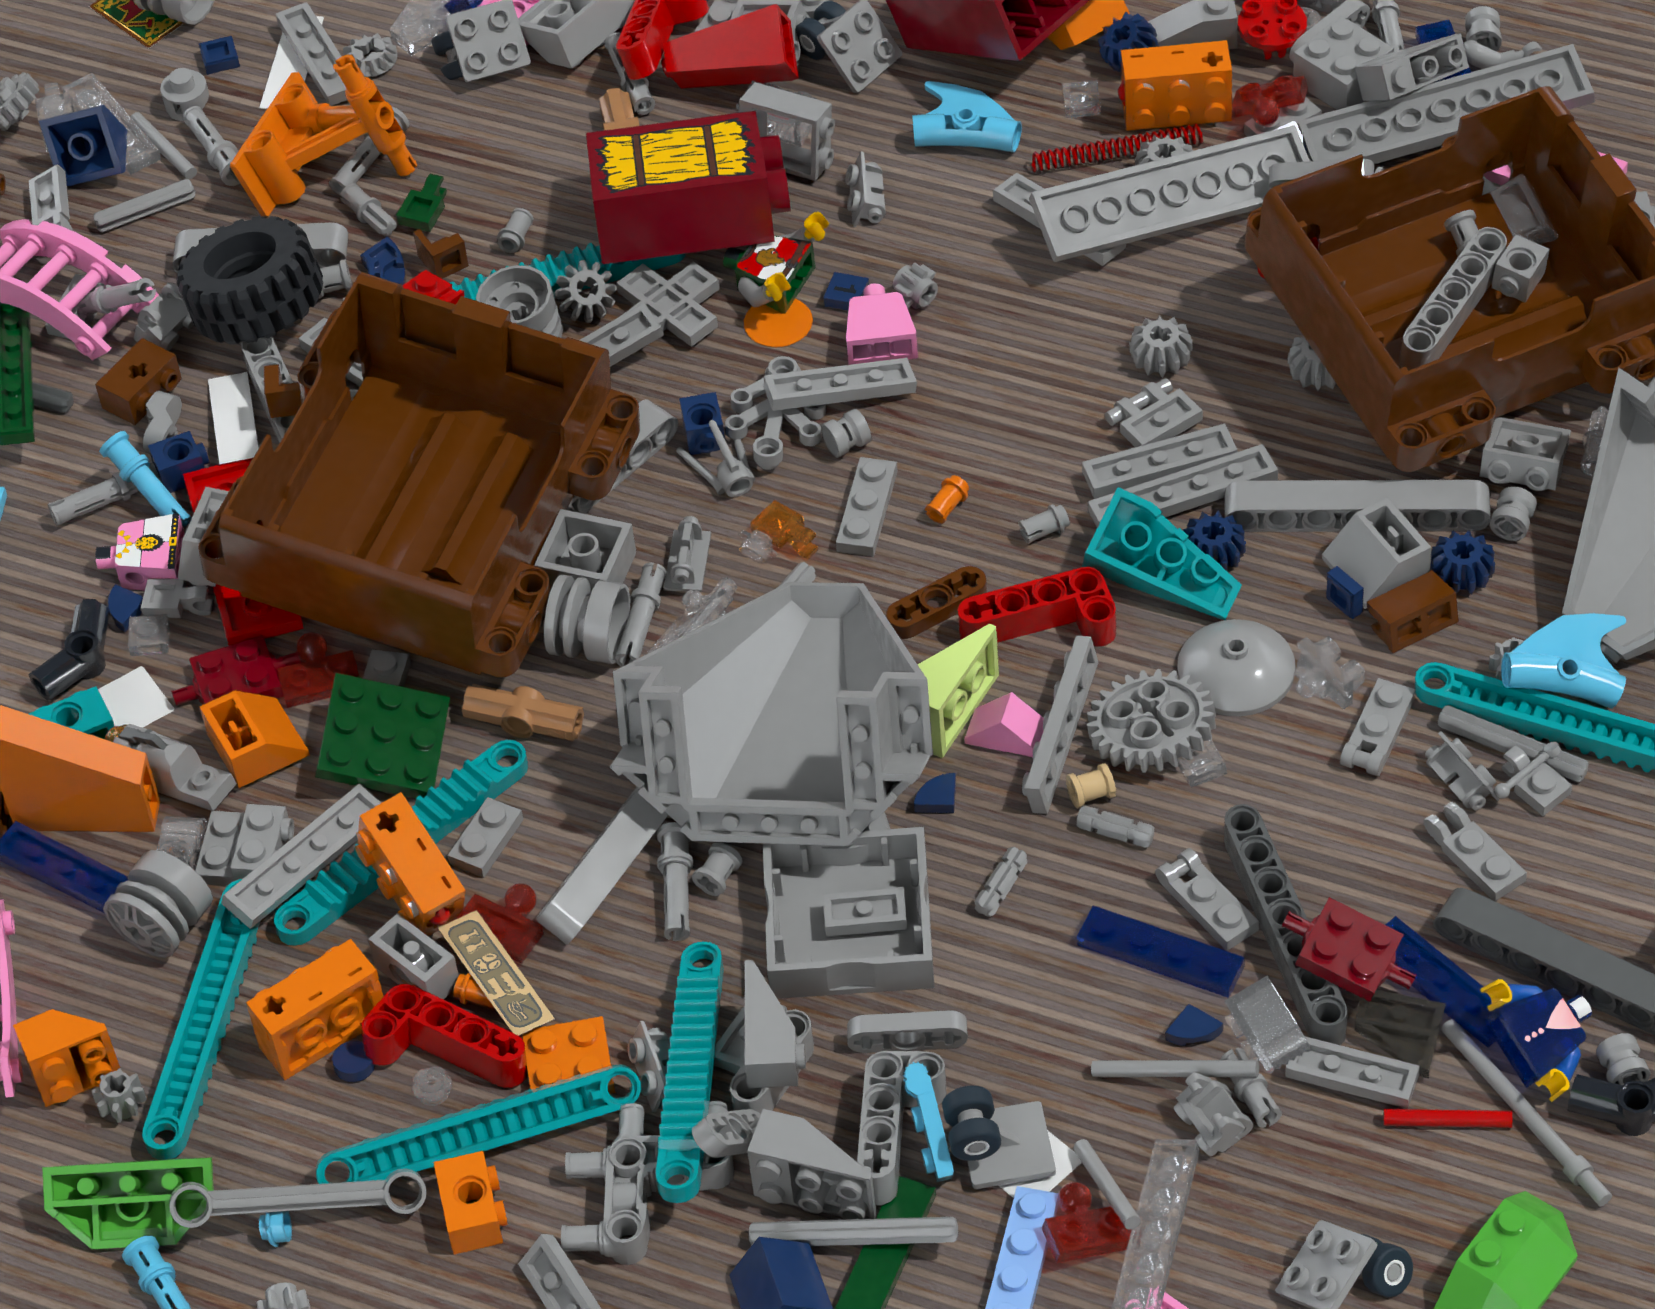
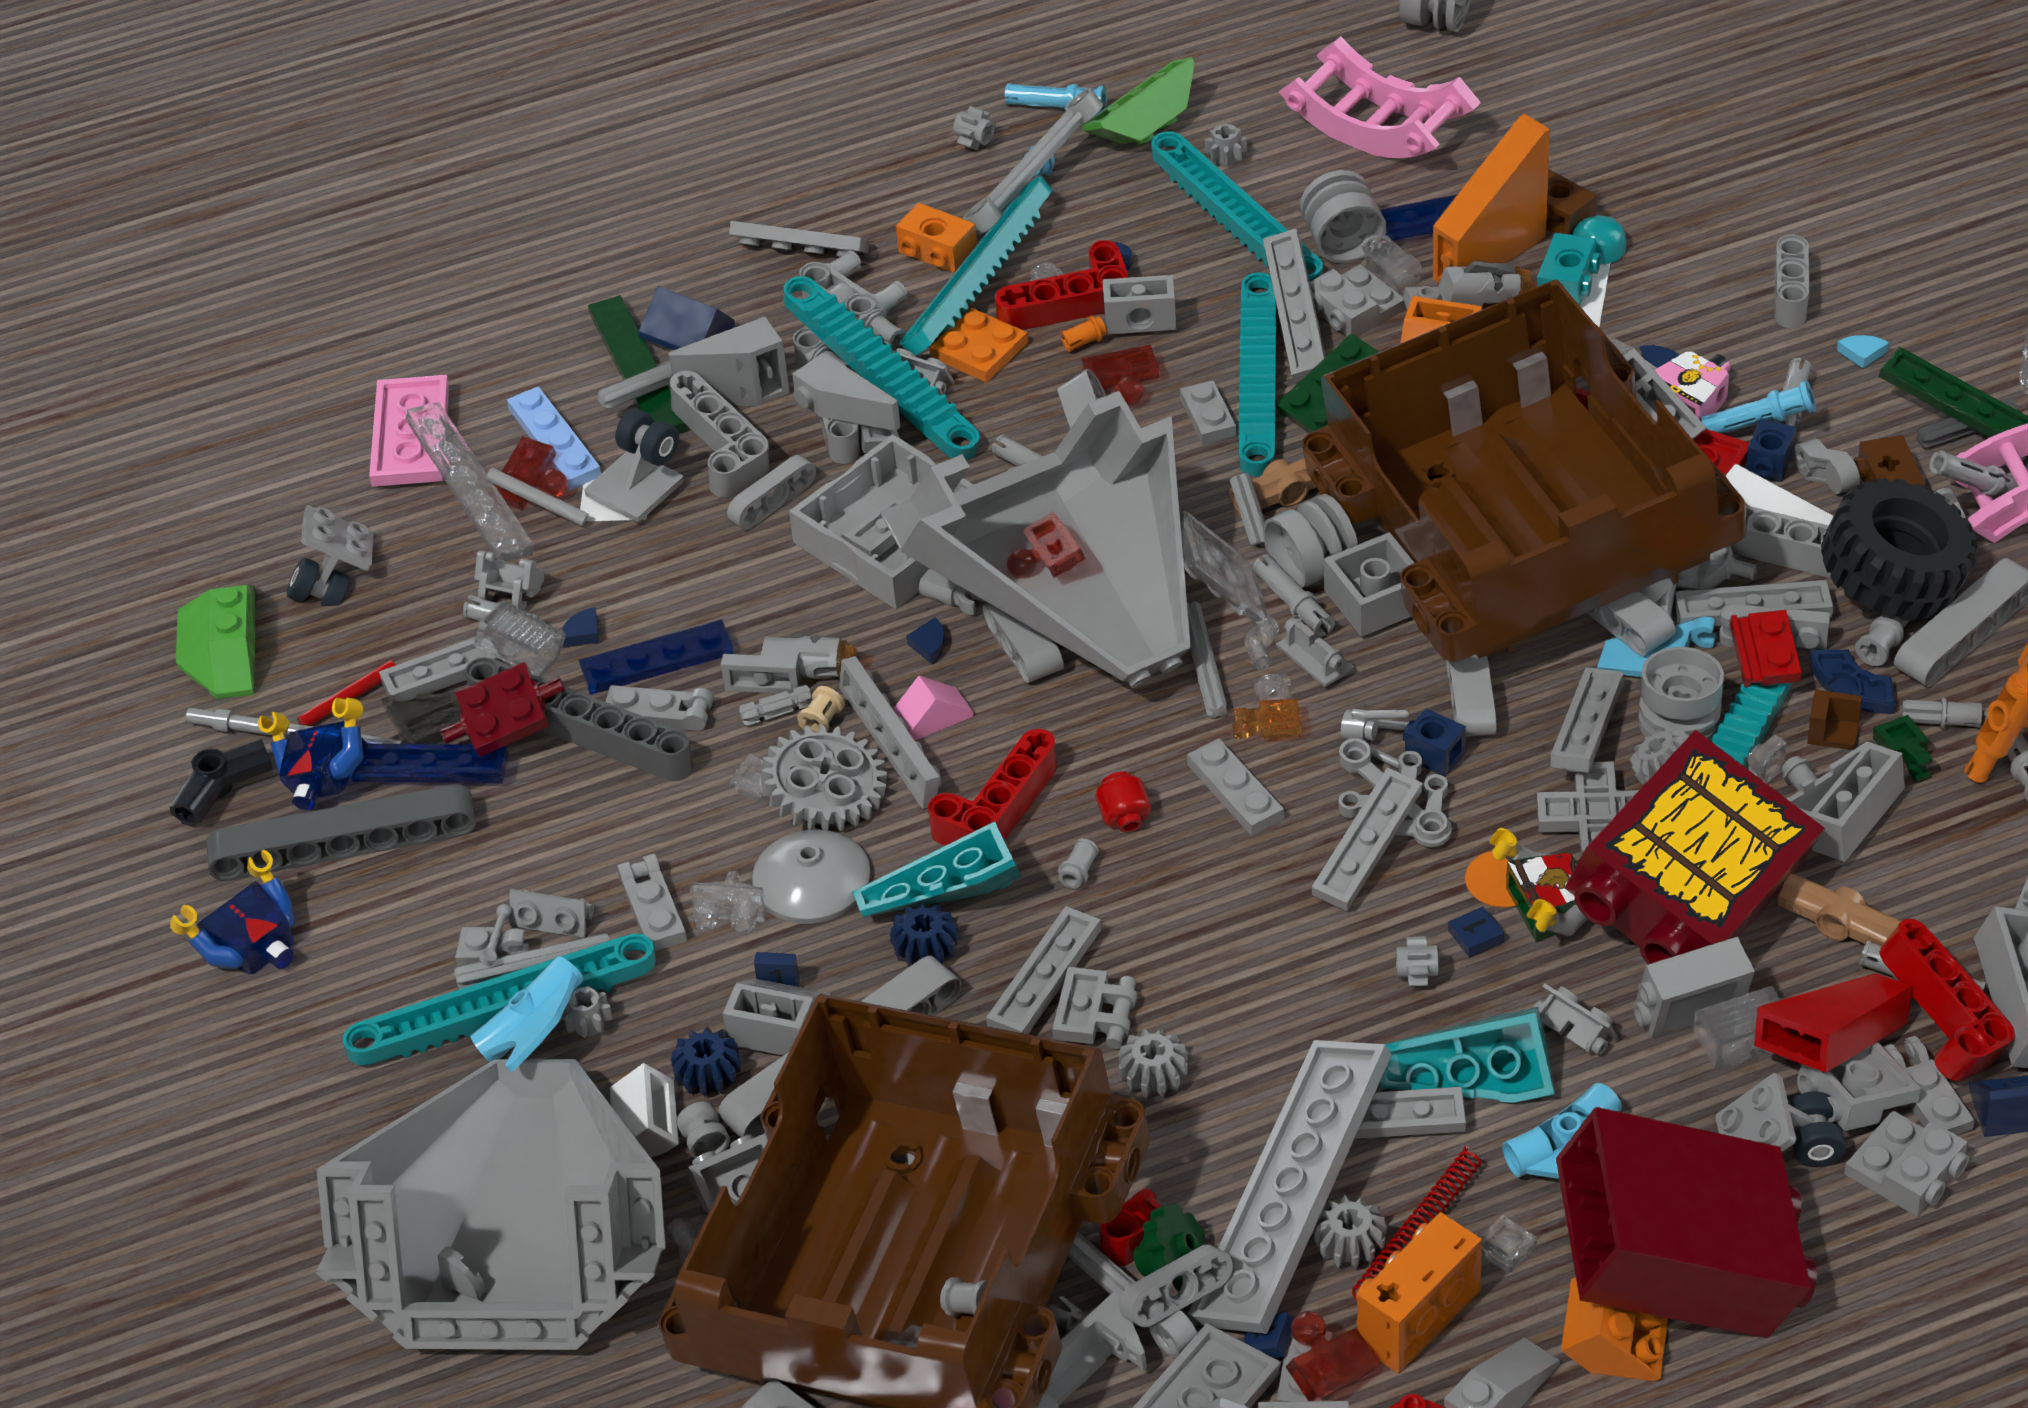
camera: 135 degrees right, 5 degrees down
(65, 1054) = (1278, 122): orange slope -> none
(82, 652) = (1635, 314): black piece -> none
(280, 398) = (1758, 504): reddish brown panel -> none
(315, 1008) = (1161, 230): orange piece -> none
(409, 865) = (1202, 322): orange piece -> none
(496, 973) = (1081, 337): sticker -> none
(521, 249) = (1768, 759): none -> clear plate
(525, 179) = (1851, 797): none -> light grey wedge
(584, 694) = (1248, 507): none -> light grey axle
(726, 1132) = (789, 335): light grey beam -> none
(782, 743) = (1049, 544): none -> clear red plate
(846, 433) = (1316, 814): light grey wheel -> none
(879, 327) = (1401, 907): bright pink torso -> none
(927, 616) = (1086, 744): reddish brown beam -> none
(928, 1119) = (692, 437): medium azure hinge -> none
(942, 196) = (1488, 1058): none -> teal wedge
(952, 492) = (1177, 834): orange pin -> none
(958, 683) = (987, 670): yellowish green slope -> none
(962, 538) = (1123, 801): none -> red head
(1000, 881) = (816, 614): light grey axle -> none
(1070, 847) = (785, 663): none -> light grey plate
(1126, 34) = (1526, 1319): dark blue gear -> none
(1175, 1068) = (567, 583): light grey bar -> none
(1197, 484) = (1002, 954): light grey plate -> none
(1413, 611) = (707, 993): reddish brown hinge -> none
(1453, 299) = (907, 1212): light grey beam -> none
(1475, 853) = (489, 868): light grey hinge -> none
(1520, 268) = (880, 1288): light grey brick -> none
(1541, 559) = (647, 1108): none -> white brick
(1621, 1059) = (242, 794): light grey wheel -> none

